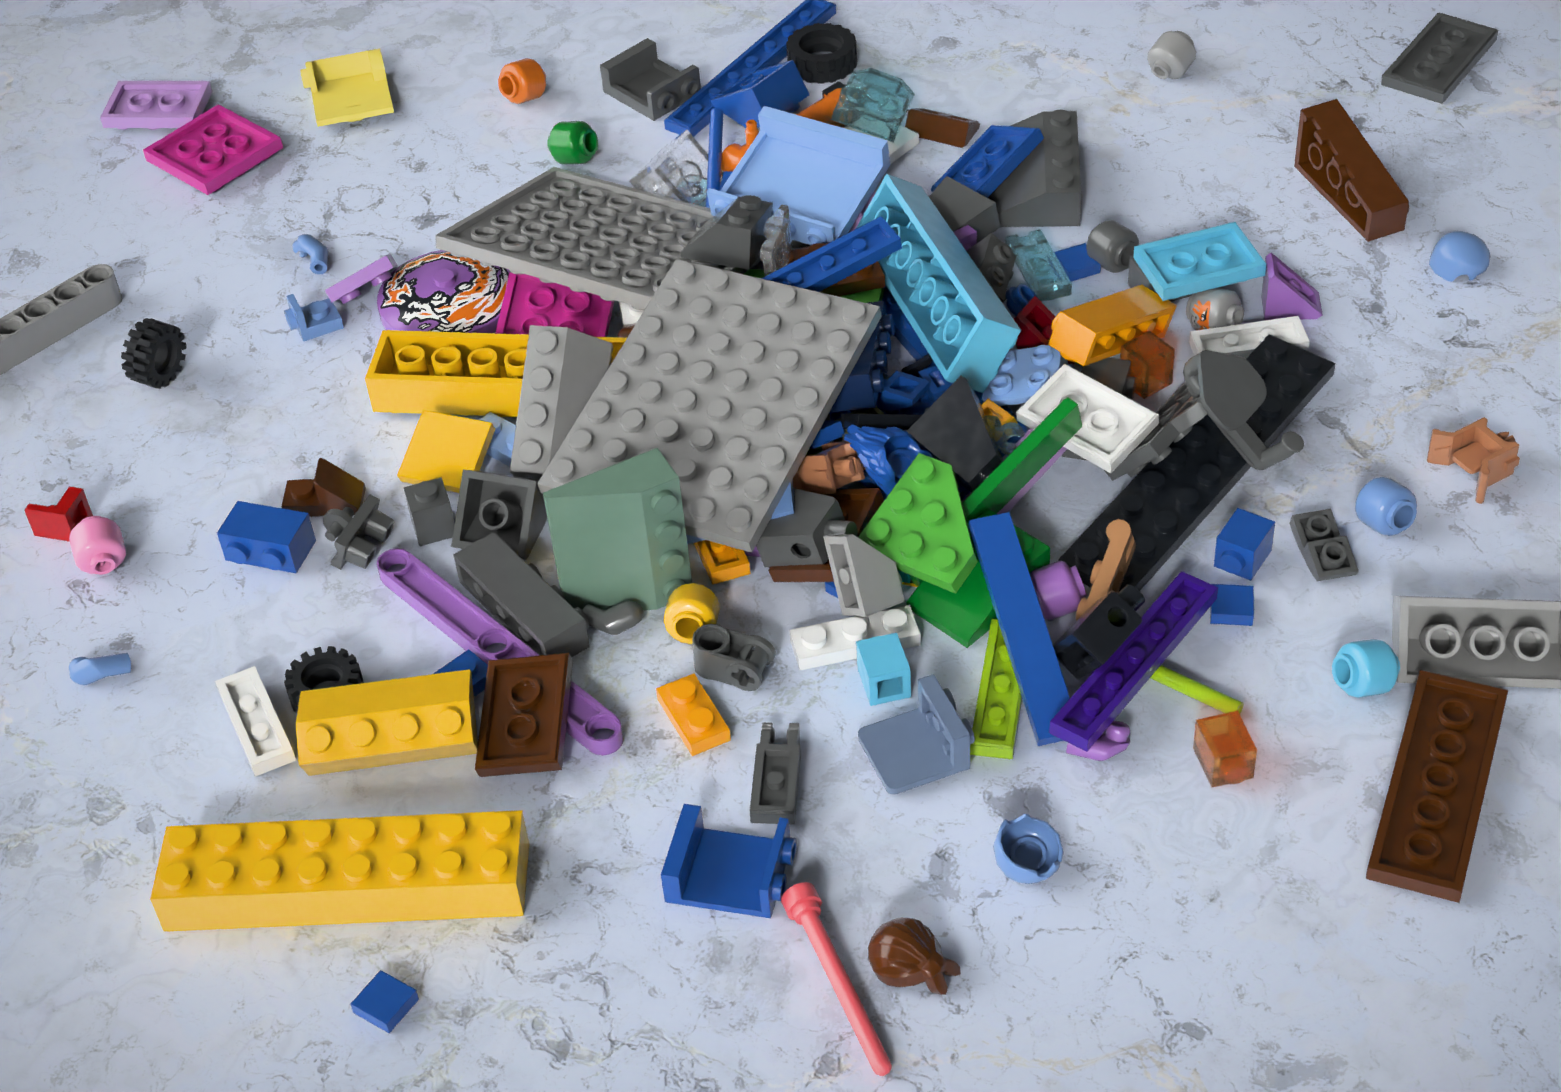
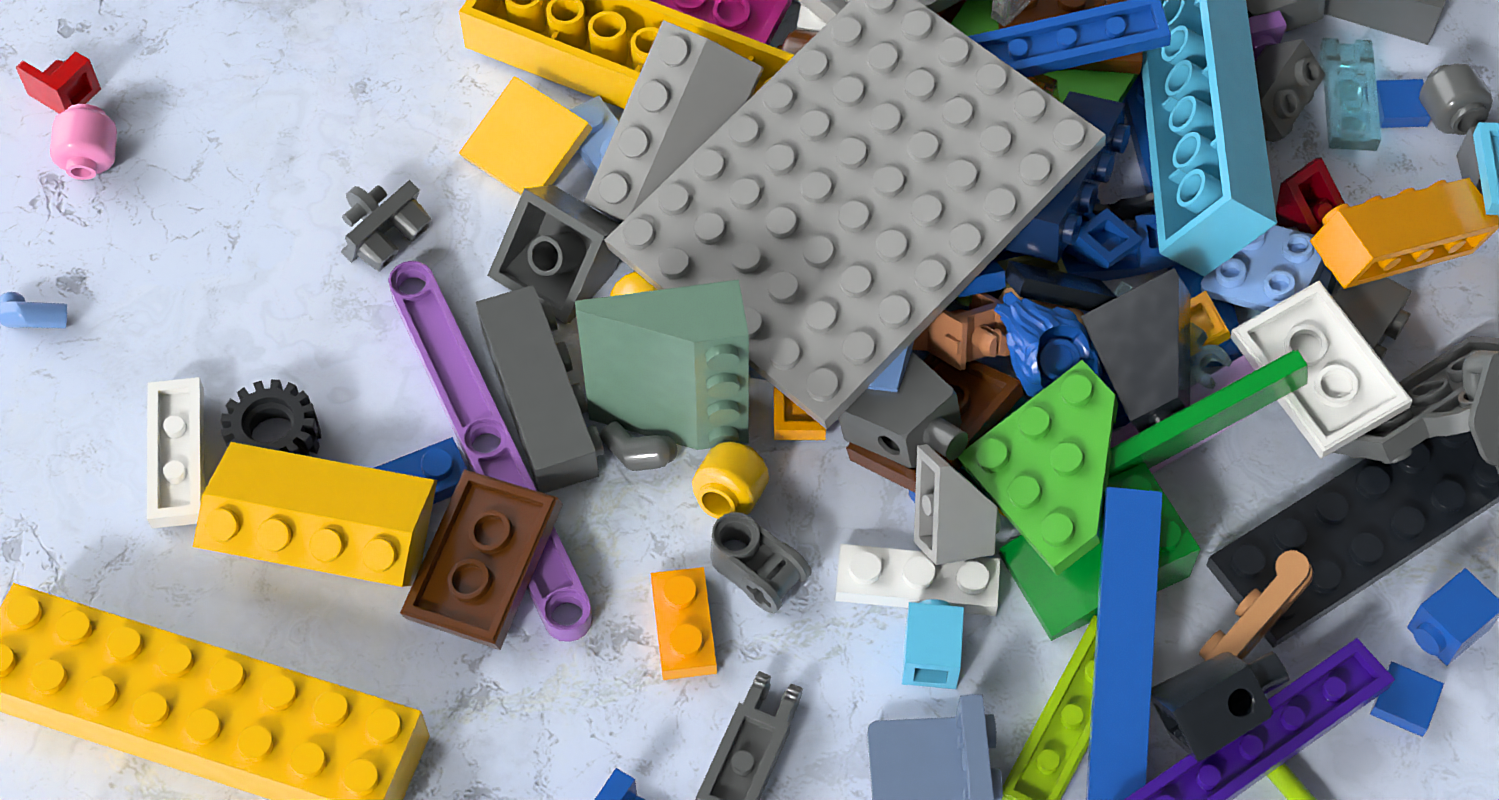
camera: 15 degrees right, 15 degrees up
(266, 536) = (276, 194): blue brick -> none
(328, 490) = (366, 150): reddish brown slope -> none
(430, 511) = (475, 222): dark grey brick -> none
(1018, 297) = (1308, 142): blue plate -> none
(1057, 589) = (1190, 604): medium lavender head -> none
(1150, 363) = (1437, 296): clear orange brick -> none

